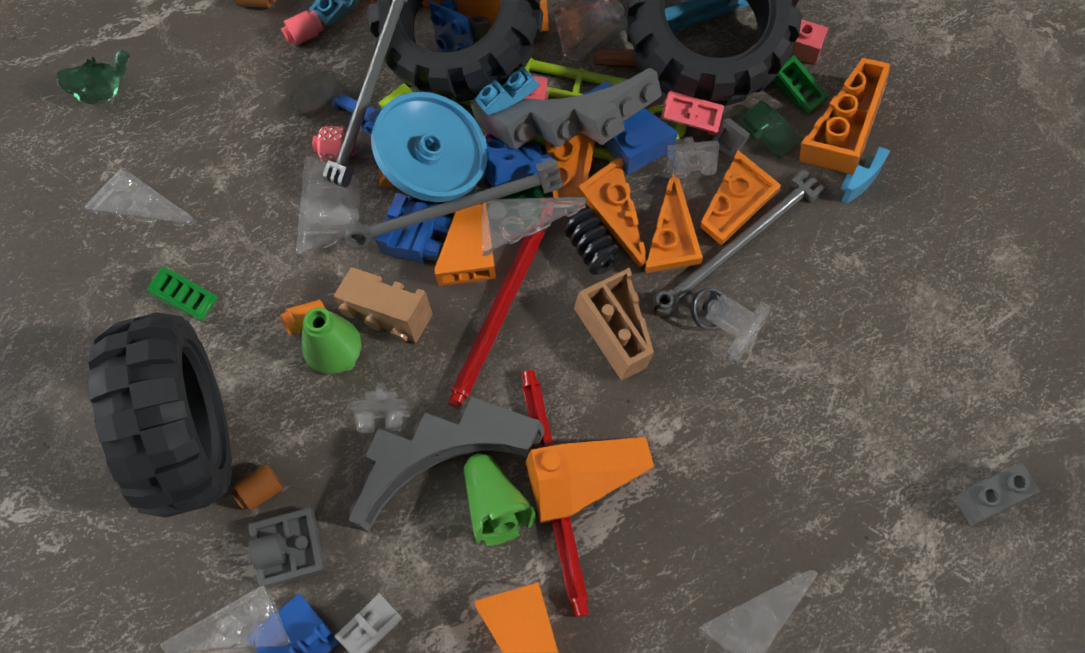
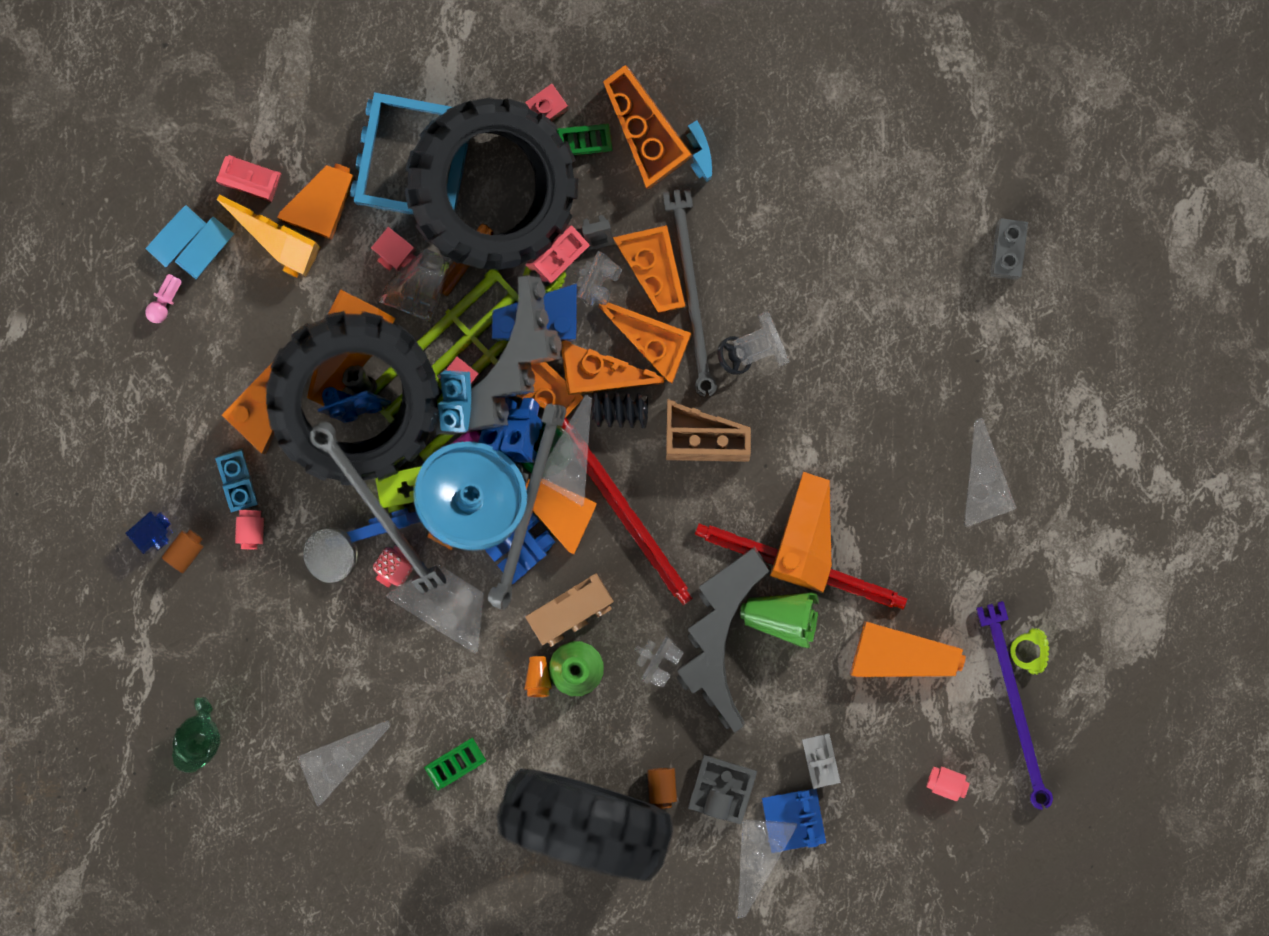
camera: 65 degrees left, 20 degrees up
(772, 127) = (608, 194): clear green slope -> none

